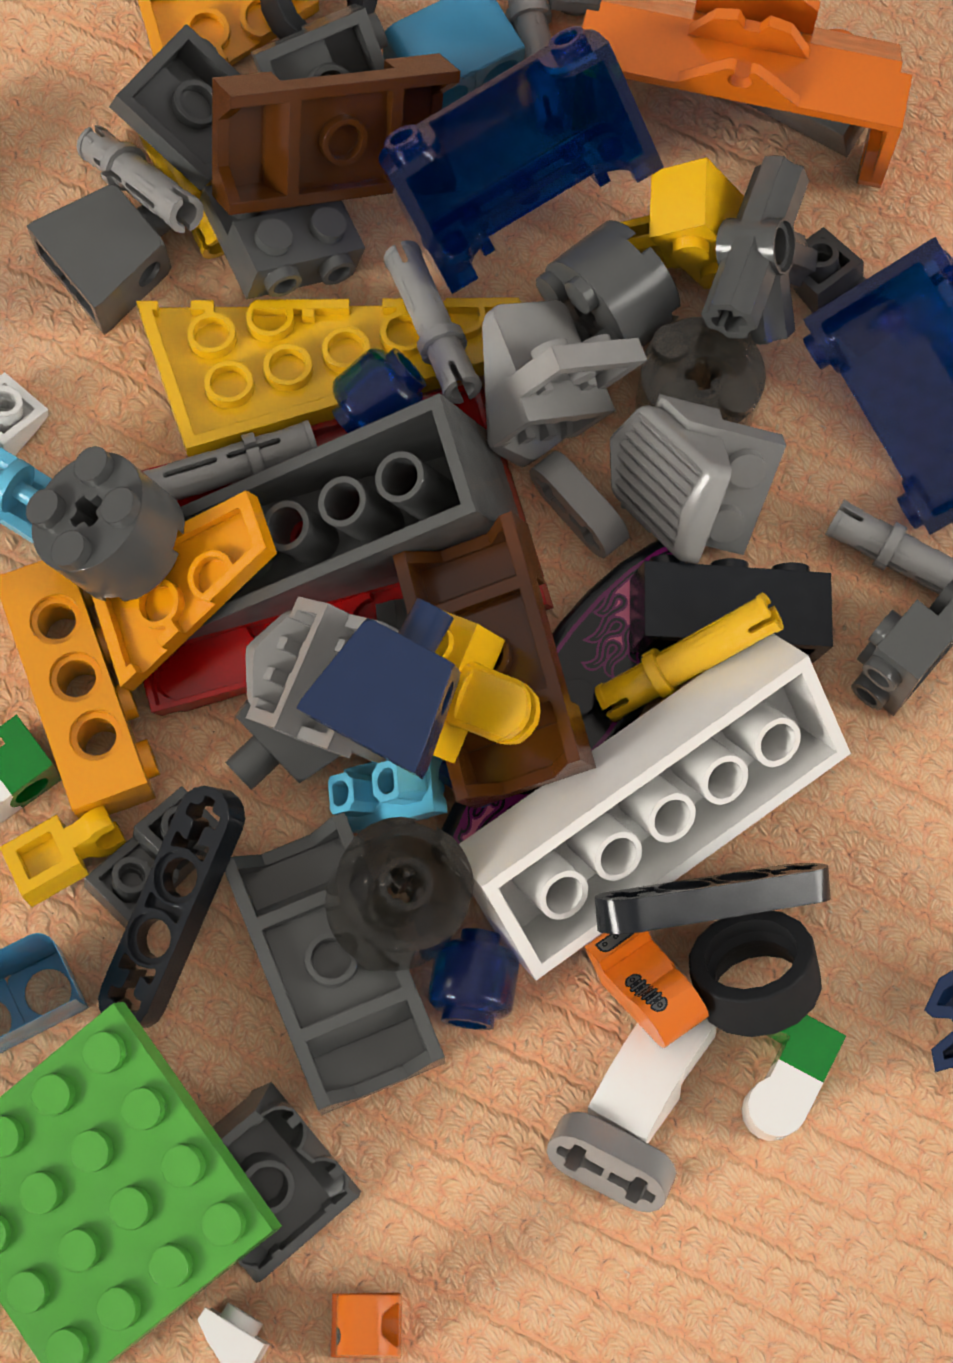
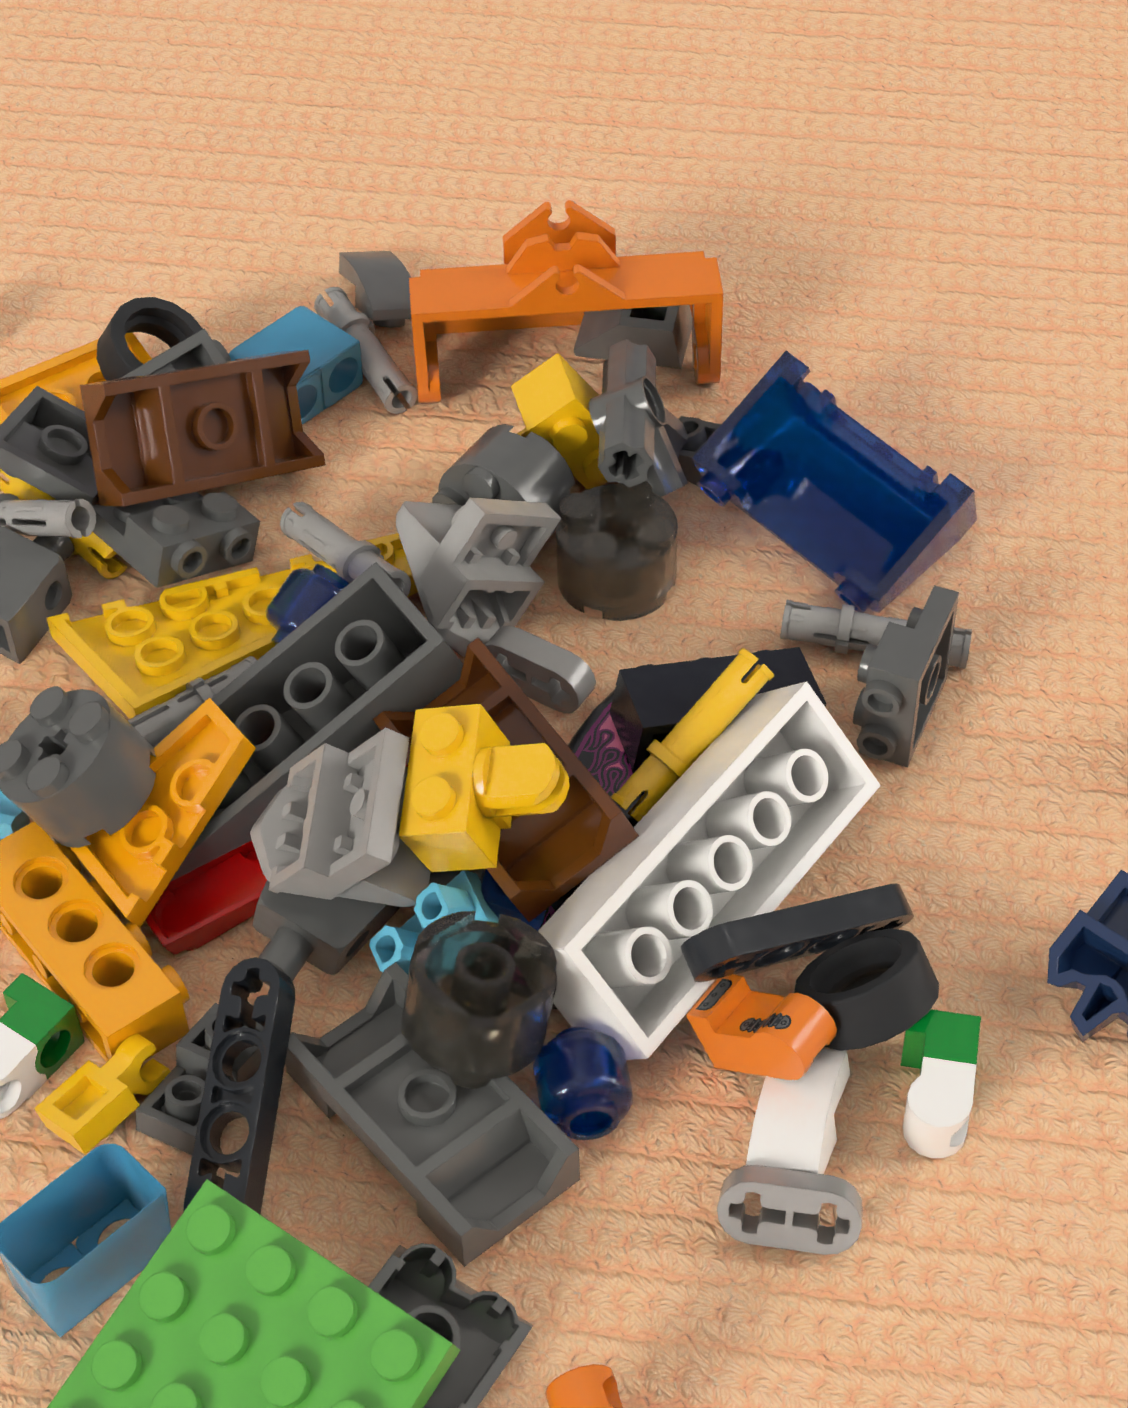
camera: 15 degrees left, 25 degrees down
(389, 688) = (411, 770): dark blue torso -> none
(515, 149) = (381, 392): clear blue windscreen -> none
(693, 475) = (636, 602): light grey piece -> none

